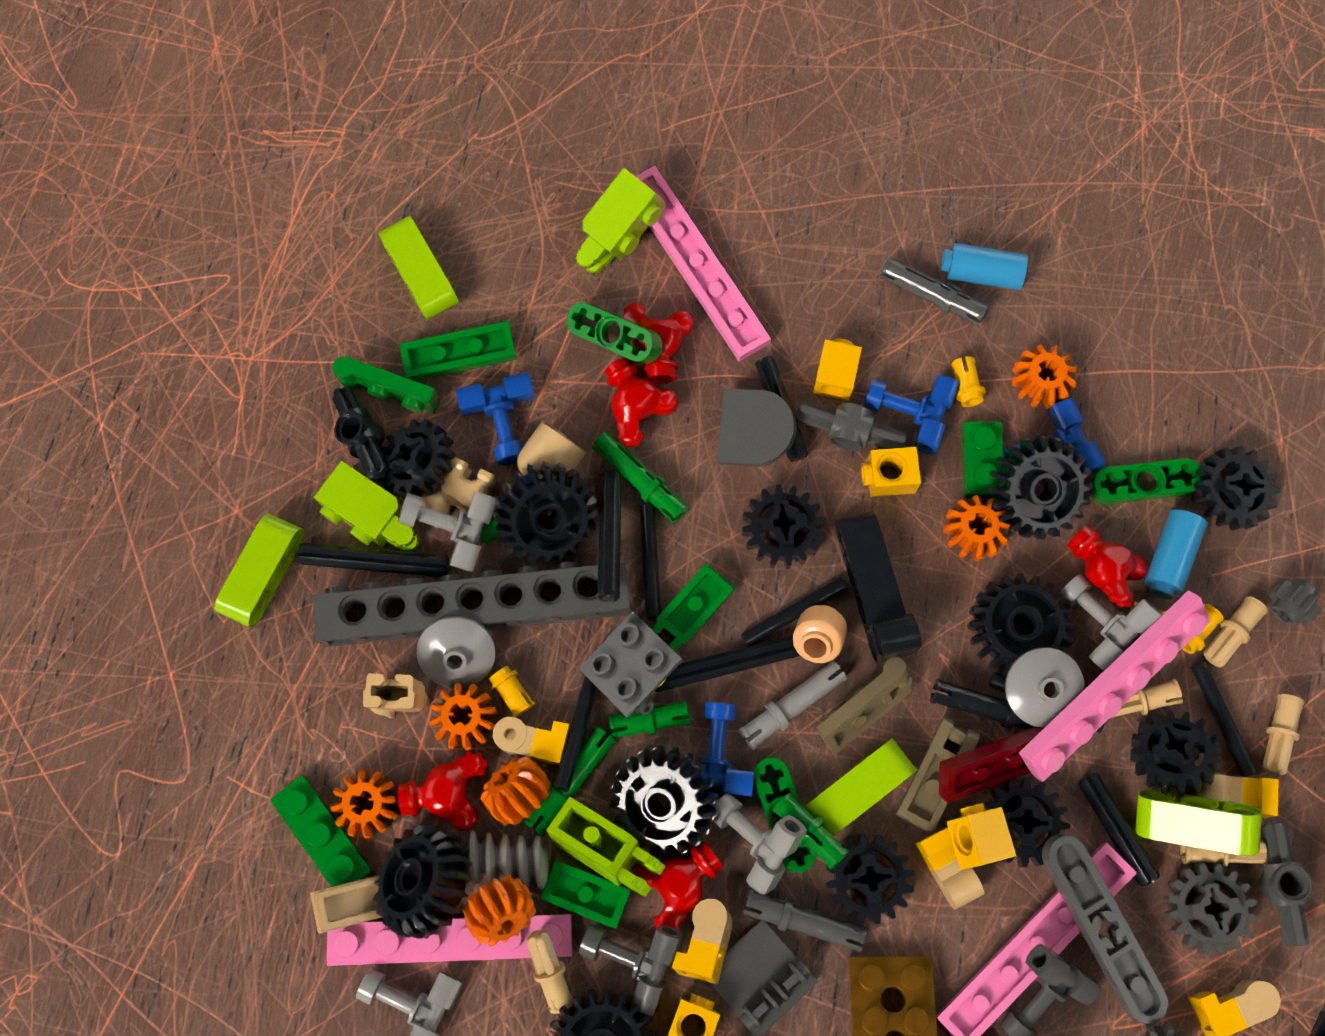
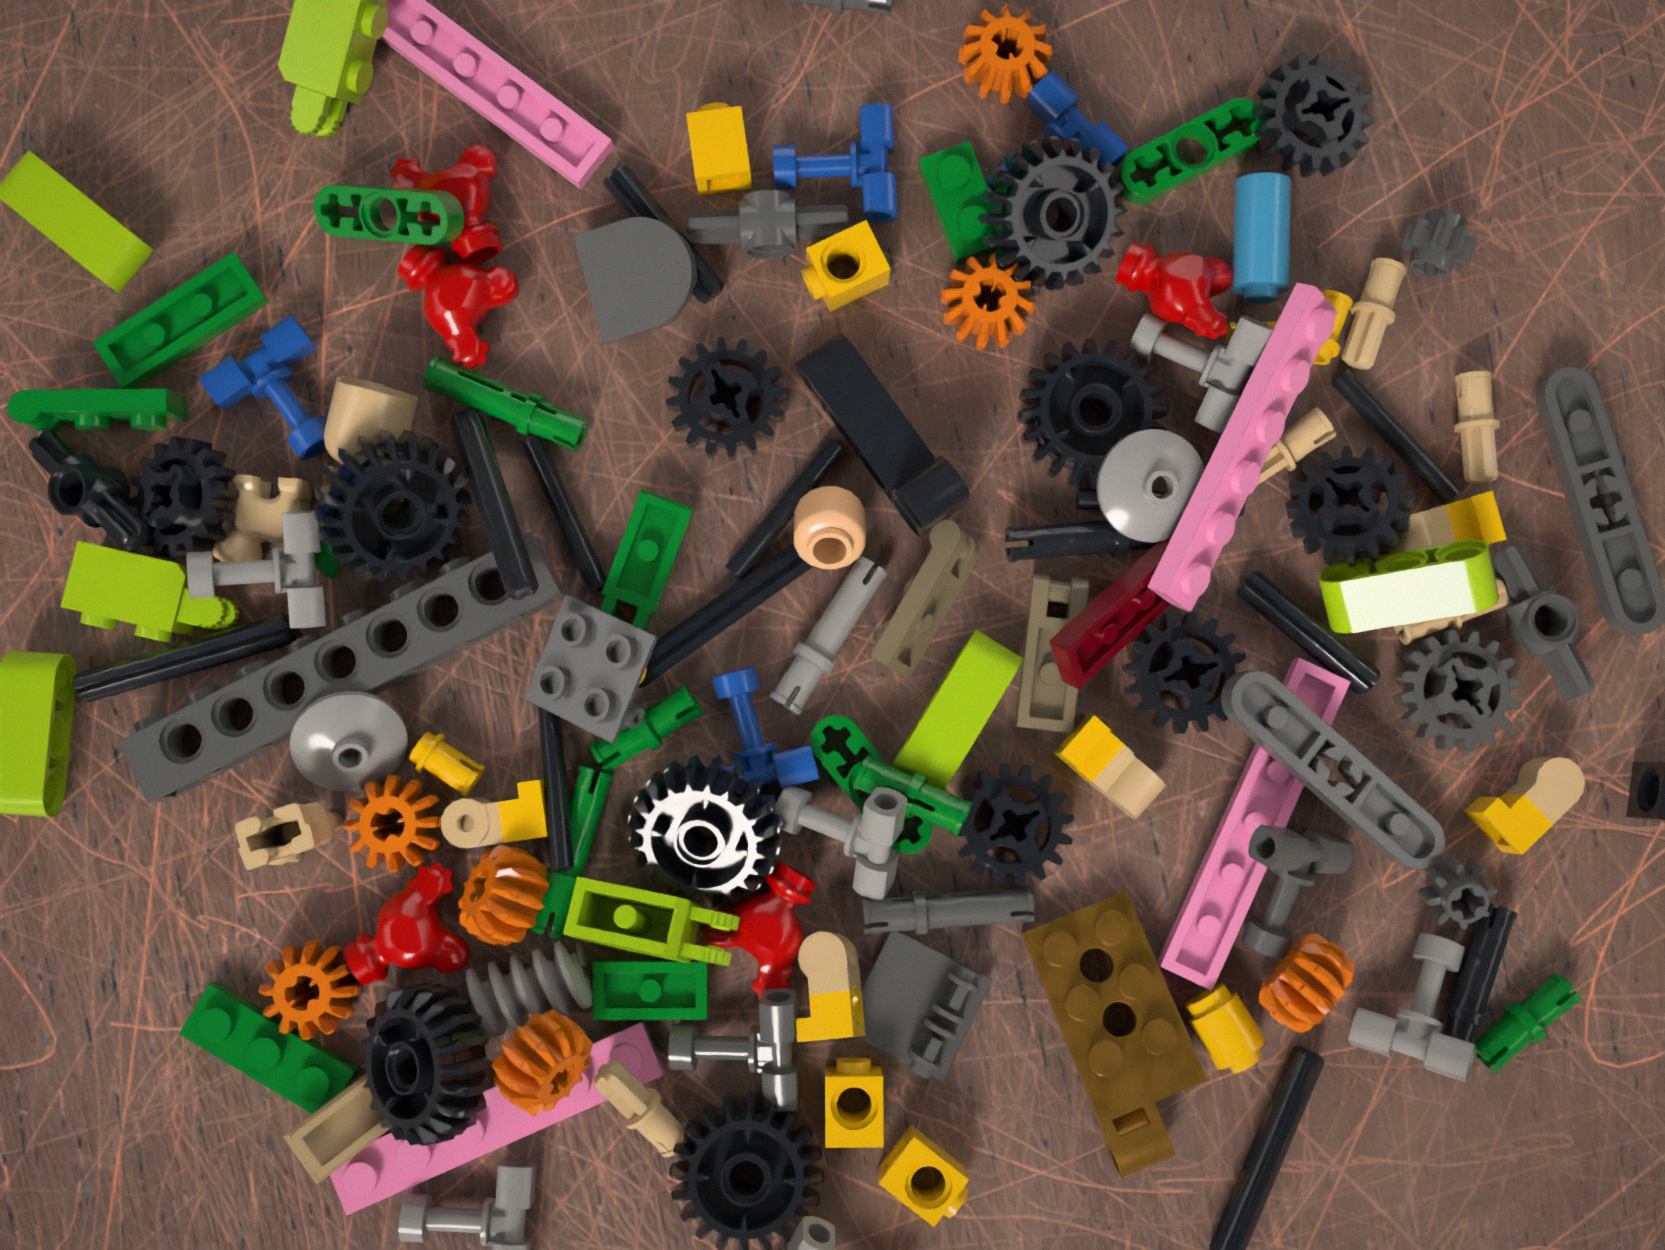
camera: 30 degrees left, 10 degrees up
(969, 388) = (911, 112): yellow pin -> none
(980, 836) = (1136, 718): yellow brick -> none

